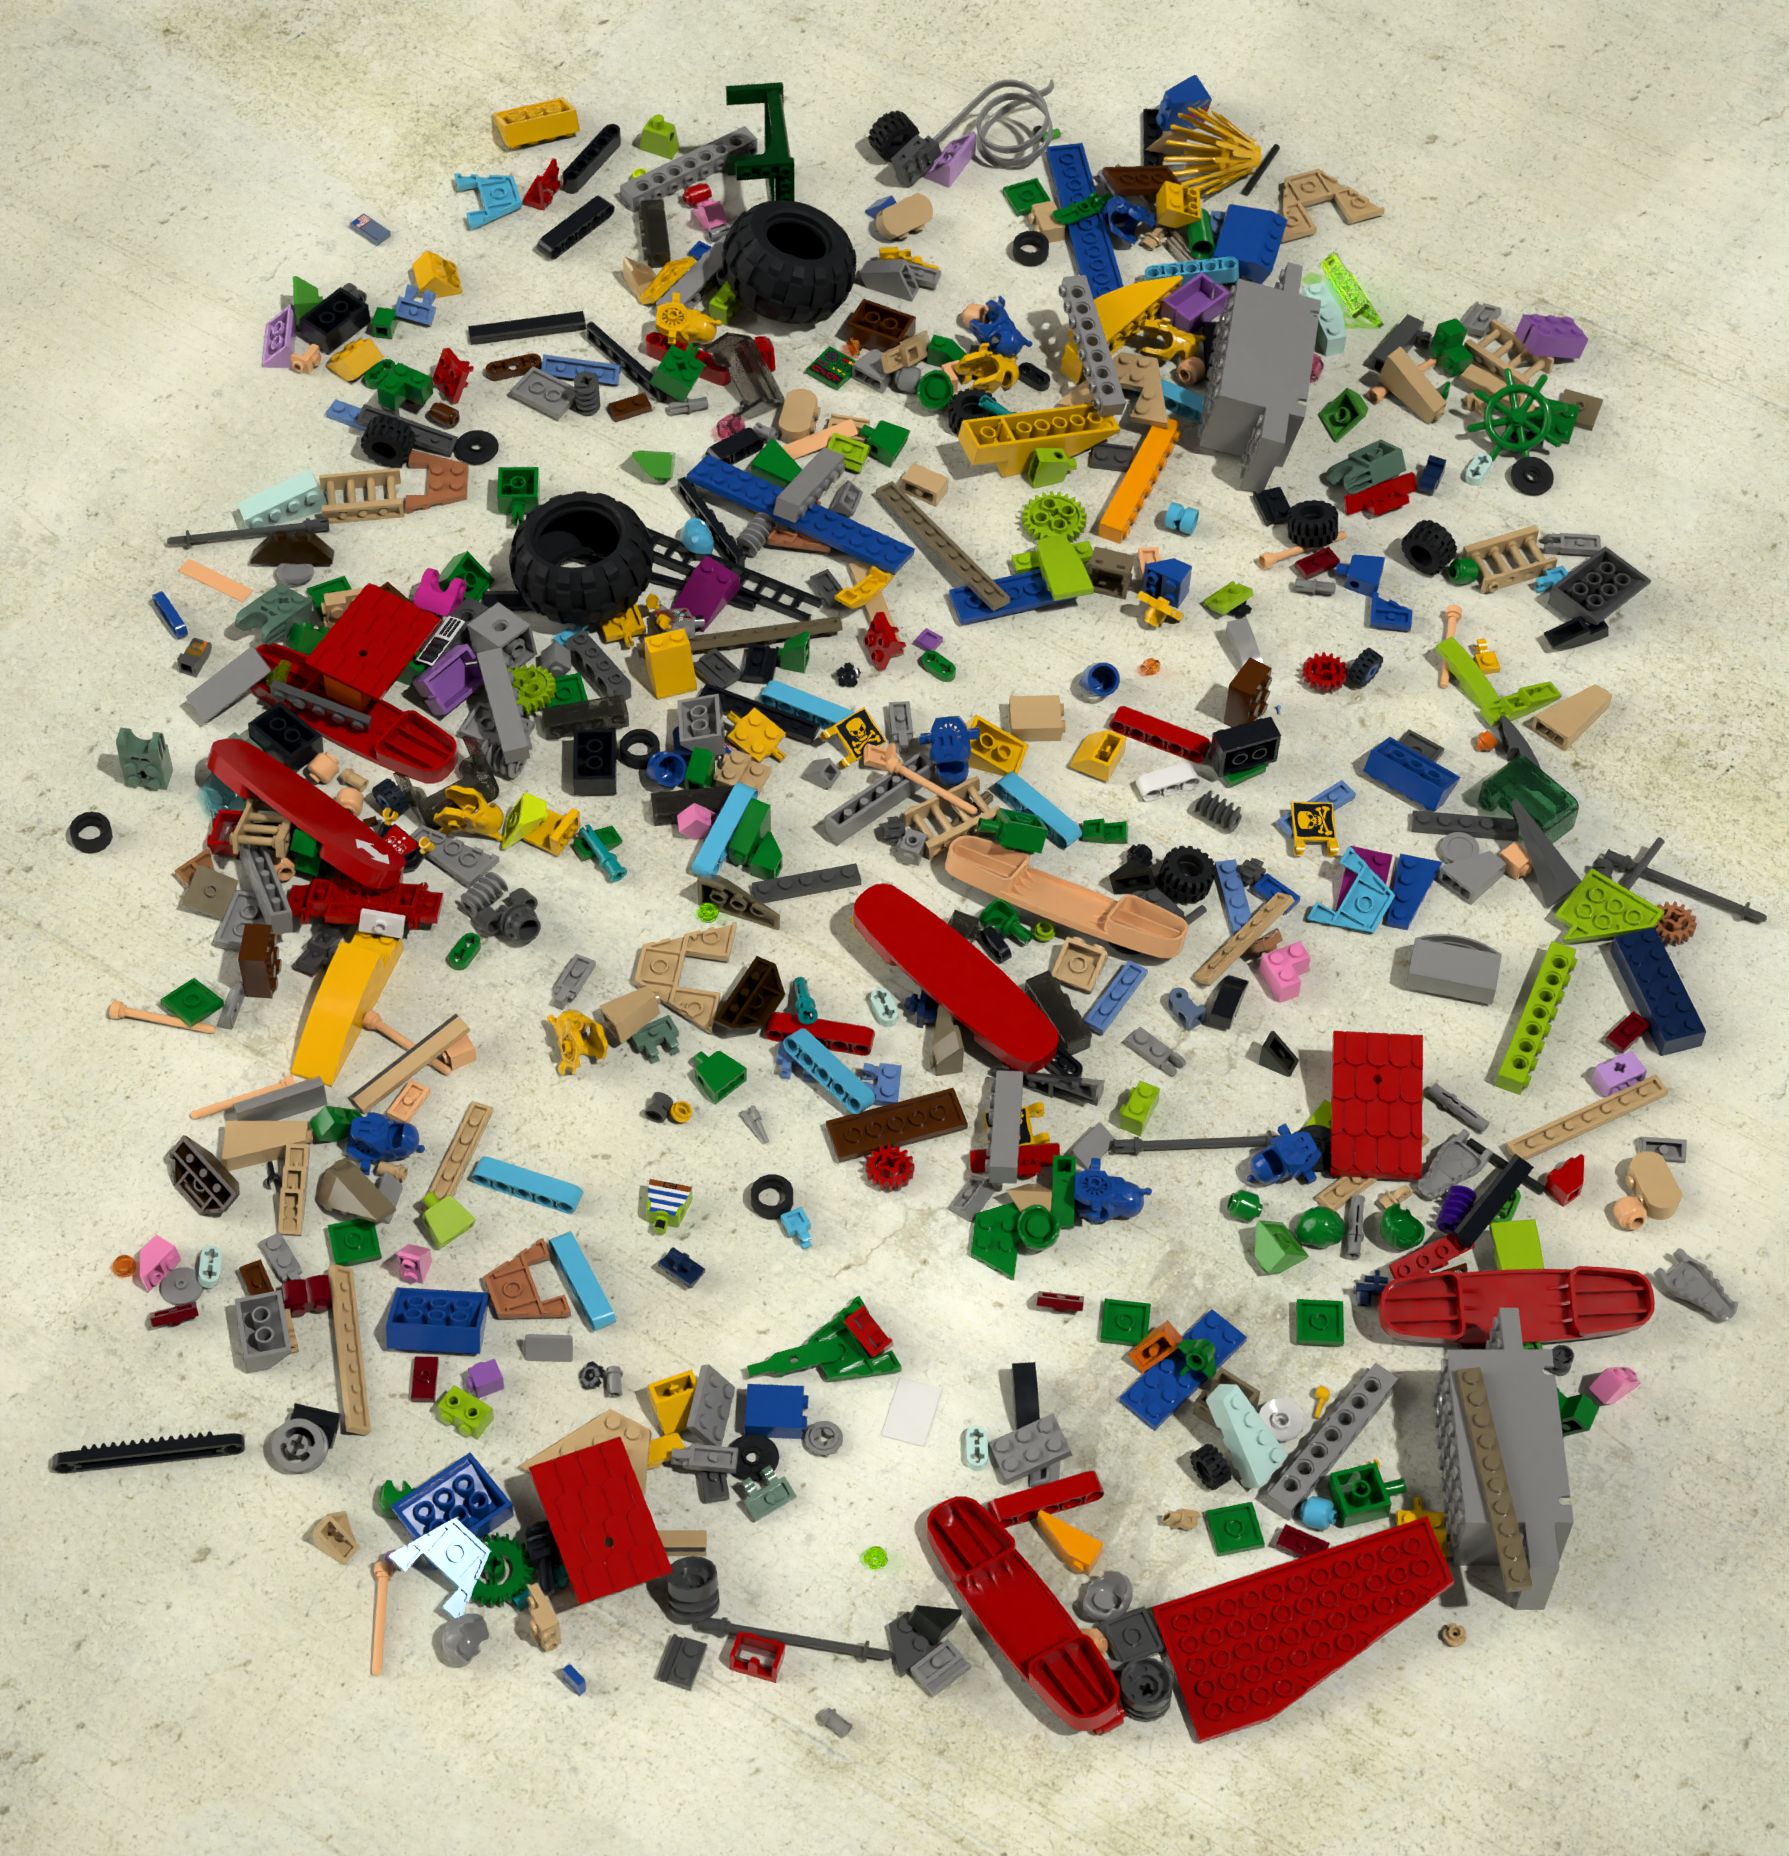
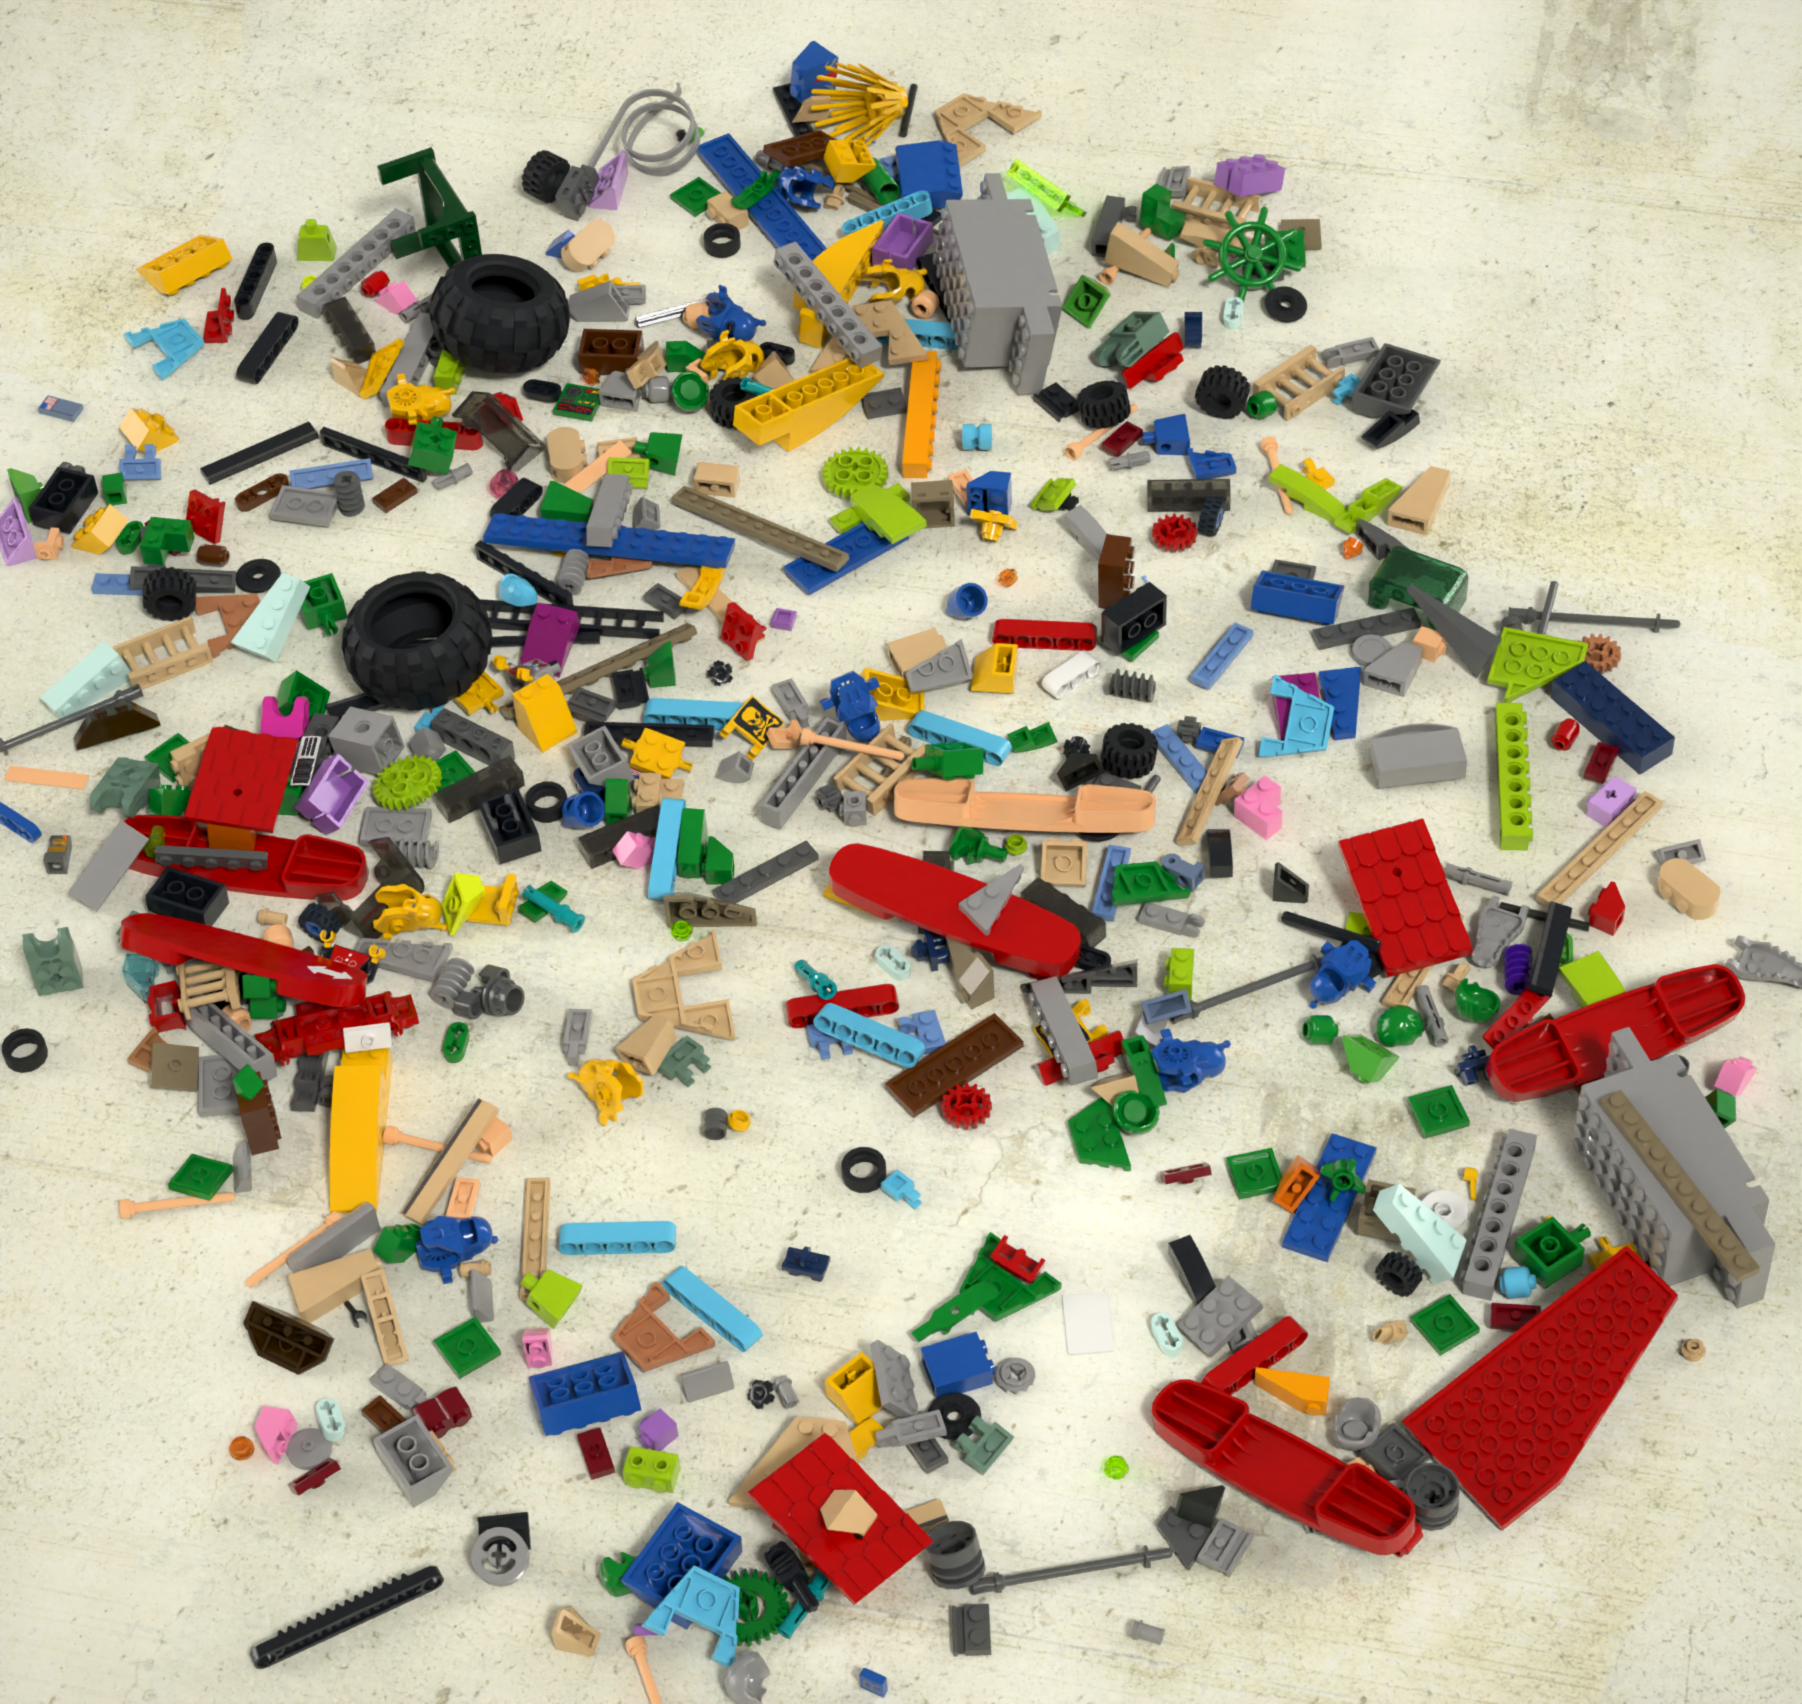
camera: 15 degrees left, 5 degrees down
(254, 933) = (247, 1083): none -> green slope
(295, 573) = (126, 745): light grey piece -> none
(323, 768) = (237, 916): light nougat head -> none
(349, 1350) = (508, 1450): tan plate -> none
(352, 1192) = (445, 1298): dark tan wedge -> none
(468, 494) = (272, 619): none -> light aqua wedge
(503, 705) = (398, 799): light grey brick -> none
(544, 1622) = (821, 1633): tan plate -> none
(604, 1520) = (848, 1512): none -> tan slope
(656, 463) = (446, 538): bright green slope -> none
(667, 1204) = (763, 1210): torso -> none
(698, 250) = (399, 332): blue tile -> none
(718, 1074) = (760, 1075): green torso -> none
(753, 998) = (765, 991): dark brown wedge -> none
(754, 1122) = (814, 1108): light grey piece -> none
(757, 1656) = (1043, 1598): red window -> none
(766, 432) = (540, 478): light grey pin -> none
(804, 346) = (542, 390): none -> black plate
(941, 664) = (804, 638): green beam -> none
(953, 306) = (664, 314): none -> axle
(972, 1198) = (1057, 1108): light grey slope -> none
(984, 982) = (985, 905): none -> light grey wing
(995, 944) = (974, 869): black beam -> none
(1021, 396) = (773, 372): none -> tan slope
(1047, 739) = (941, 670): none -> light grey wing
(1049, 466) = (830, 428): lime torso -> none
(1110, 1135) = (1166, 1006): none -> sand blue slope
(1144, 1009) = (1144, 883): none -> green wing
(1296, 1114) = (1329, 930): none -> black axle
(1313, 824) = (1228, 668): flag -> none
(1353, 637) = (1185, 494): none -> clear smoke brick
(1605, 993) = (1565, 734): none -> red brick
(1630, 1213) = (1678, 920): light nougat head -> none

